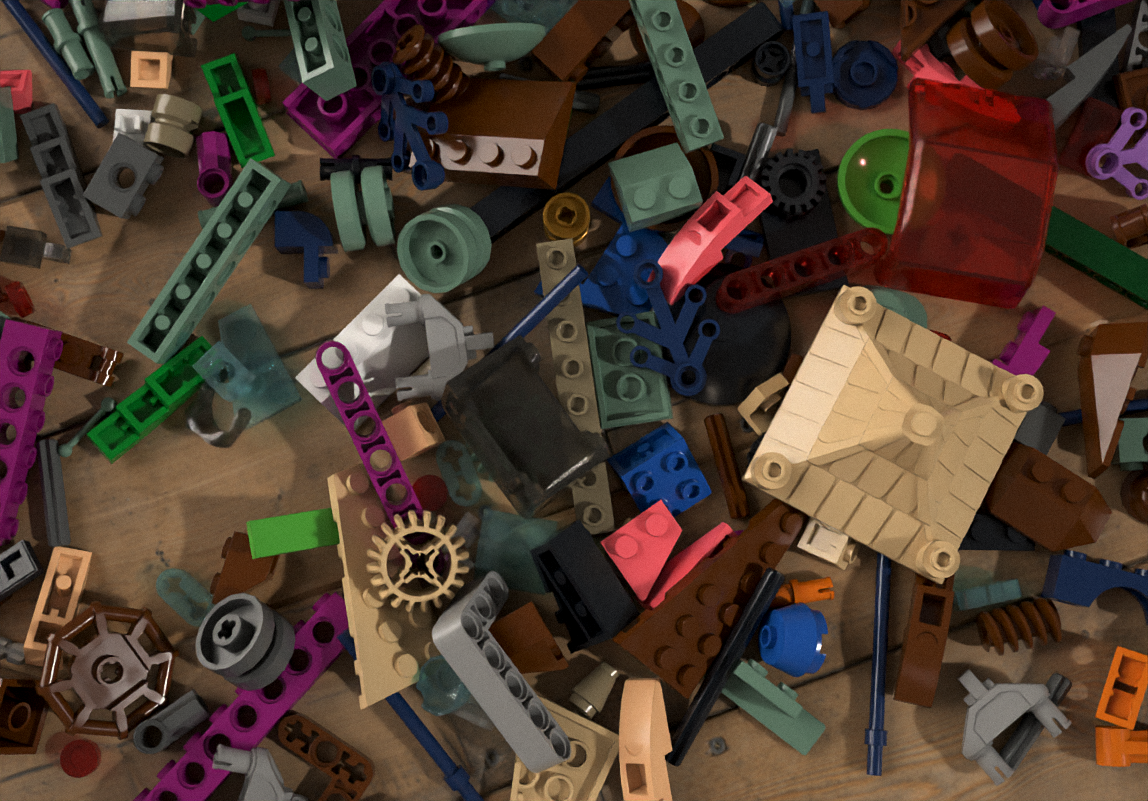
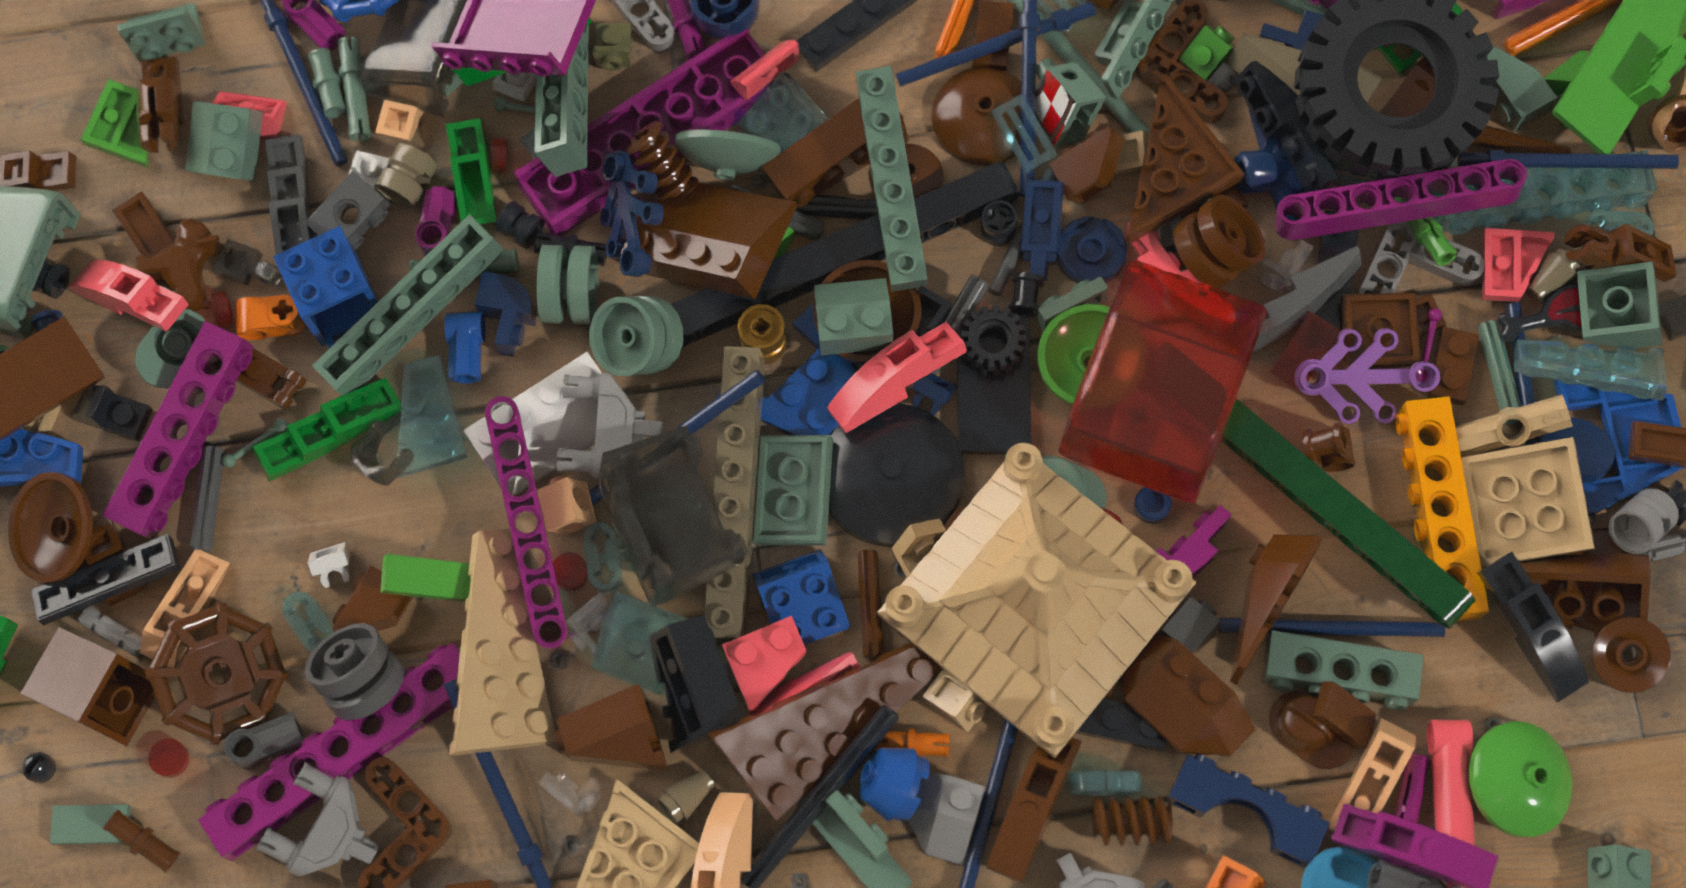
camera: 25 degrees right, 10 degrees down
(65, 298) = (263, 317): none -> orange piece
(122, 256) = (327, 284): none -> blue container
(191, 531) = (330, 559): none -> white tile
(214, 361) = (388, 402): clear light blue brick -> none
(271, 278) = (464, 336): none -> blue piece
(299, 154) = (520, 225): none -> black wheel
(406, 573) = (511, 641): tan gear -> none
(441, 687) = (537, 750): clear light blue hair -> none
(493, 678) = (587, 756): light grey beam -> none
(671, 334) = (839, 459): dark blue plant -> none
(811, 129) = (1026, 293): none -> black bush
(815, 260) = (970, 435): clear red beam -> none
(849, 659) = (946, 816): none -> light grey slope
(867, 121) = (1082, 293): none -> sand green plate
(972, 316) = (1152, 505): none -> dark blue tile

